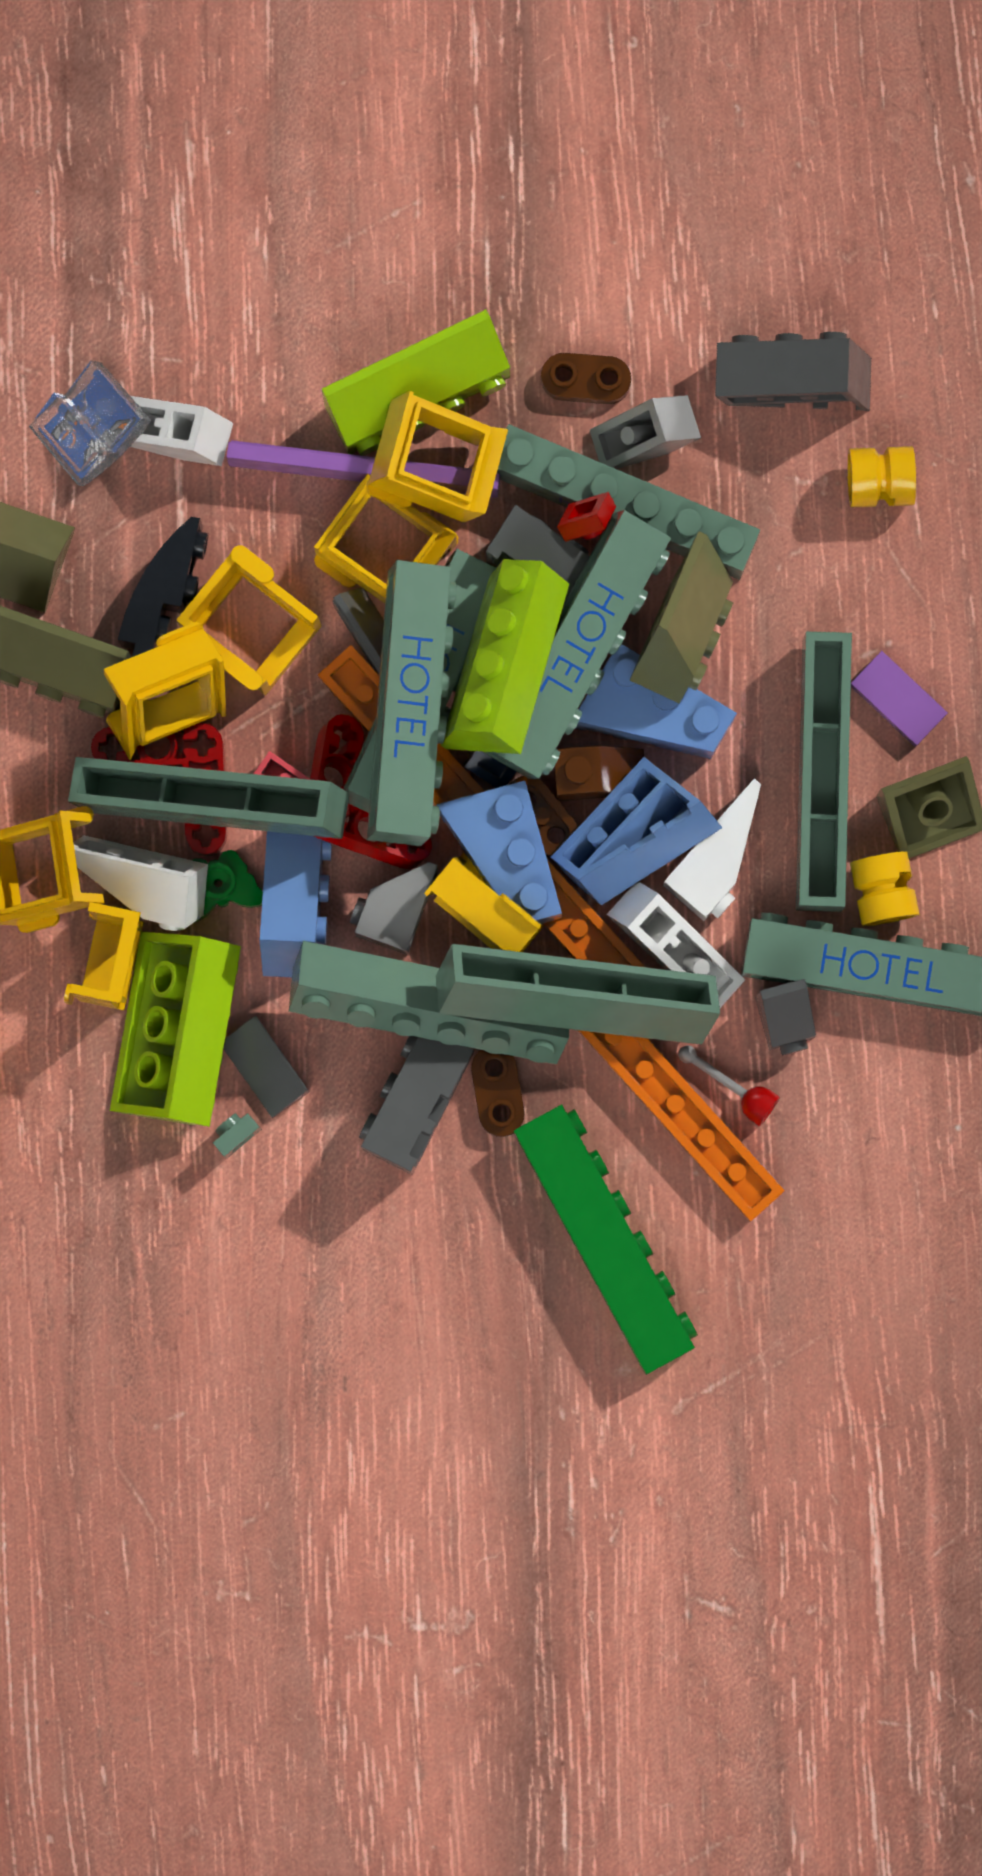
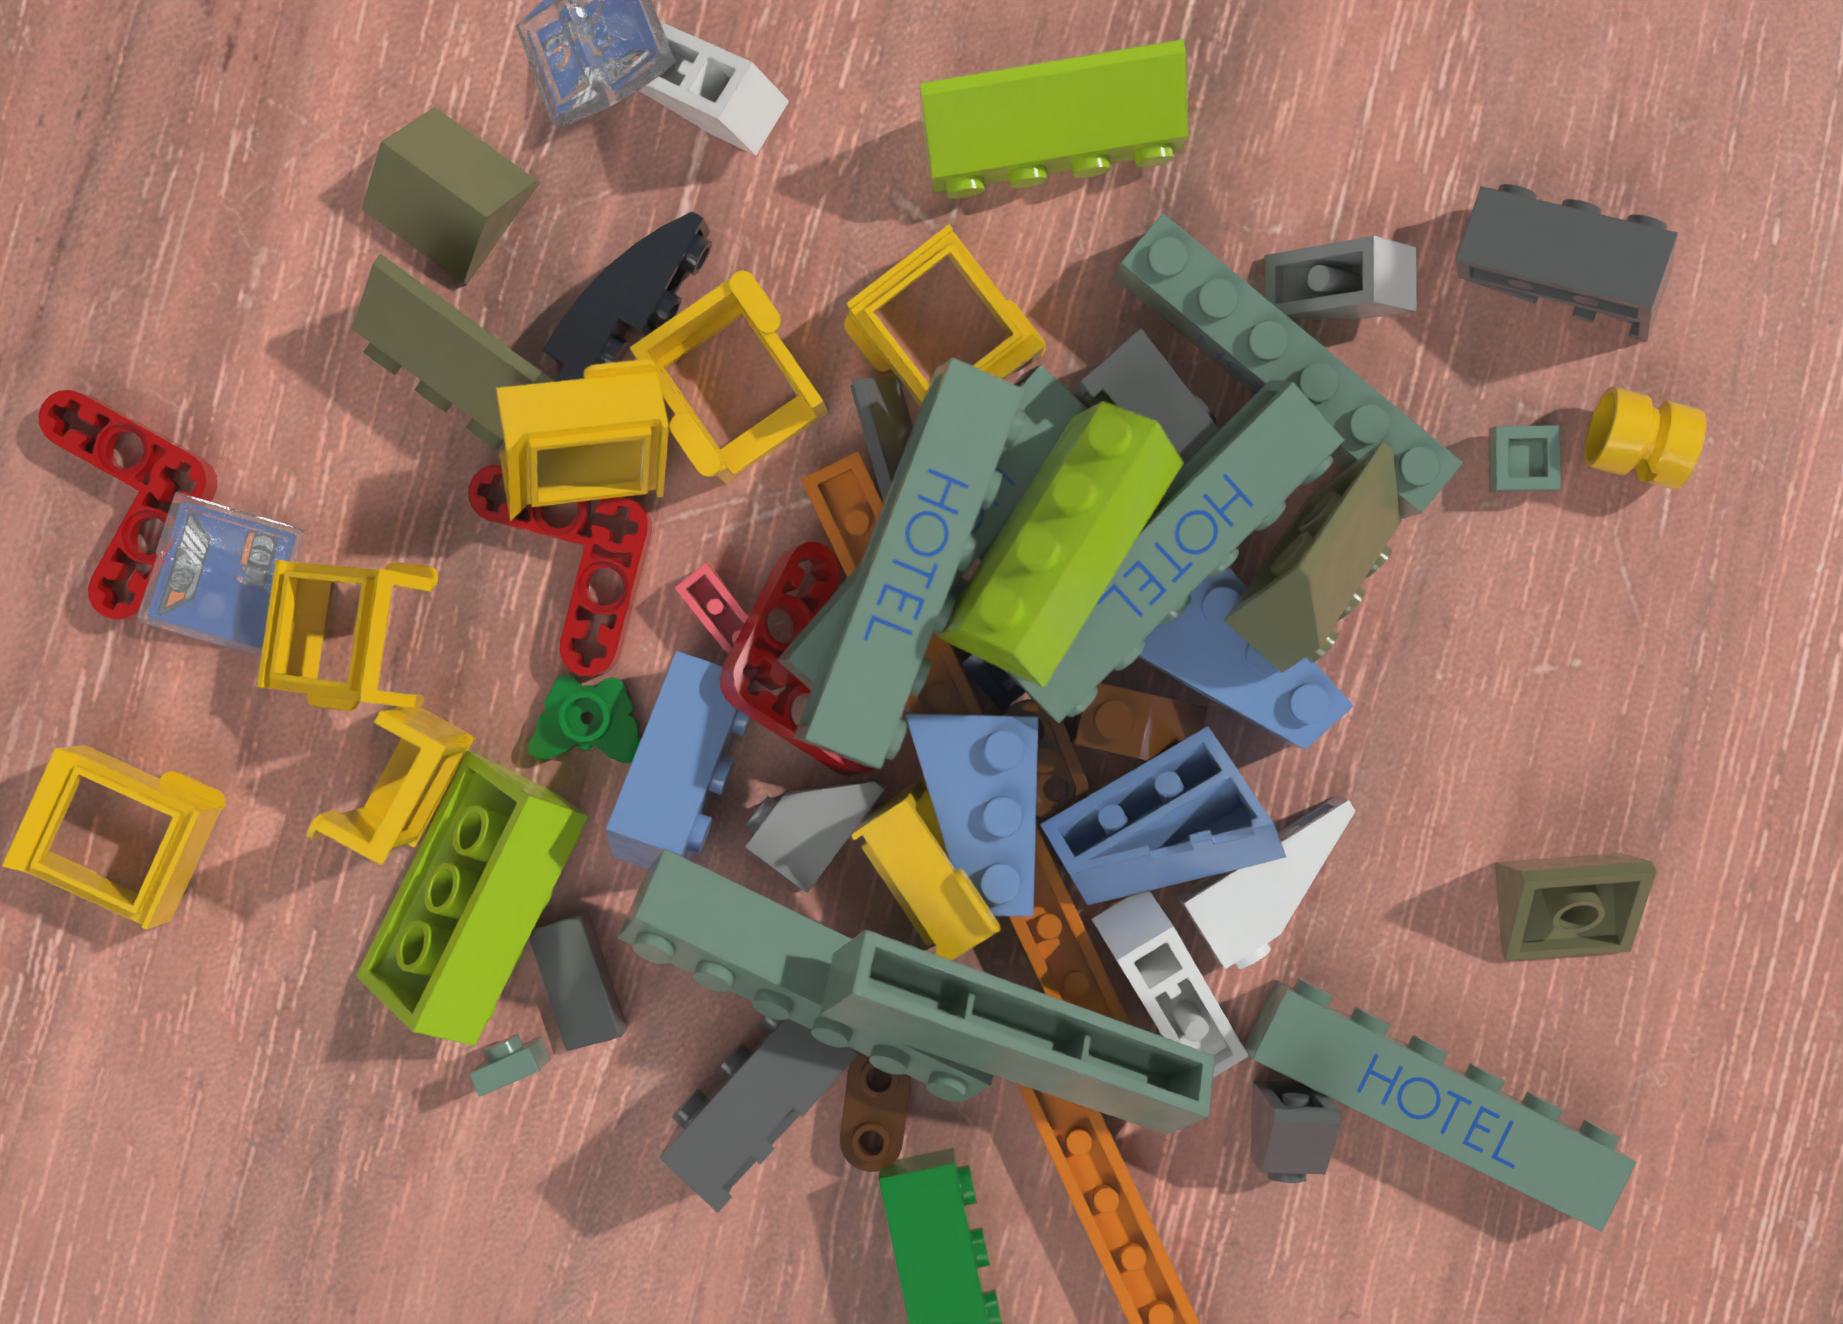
camera: 15 degrees right, 5 degrees up
(146, 881) = (484, 689): white slope -> none
(209, 797) = (599, 610): sand green brick -> none
(339, 465) = (936, 211): medium lavender tile -> none
(399, 488) = (990, 258): yellow piece -> none
(586, 382) = (1282, 189): reddish brown plate -> none
(587, 517) = (1233, 375): red plate -> none
(755, 1103) = (1215, 1226): hinge -> none
(807, 514) = (1524, 458): none -> sand green plate
(823, 771) = (1444, 817): sand green brick -> none
(884, 888) = (1475, 999): yellow wheel -> none
(898, 699) = (1568, 743): medium lavender tile -> none

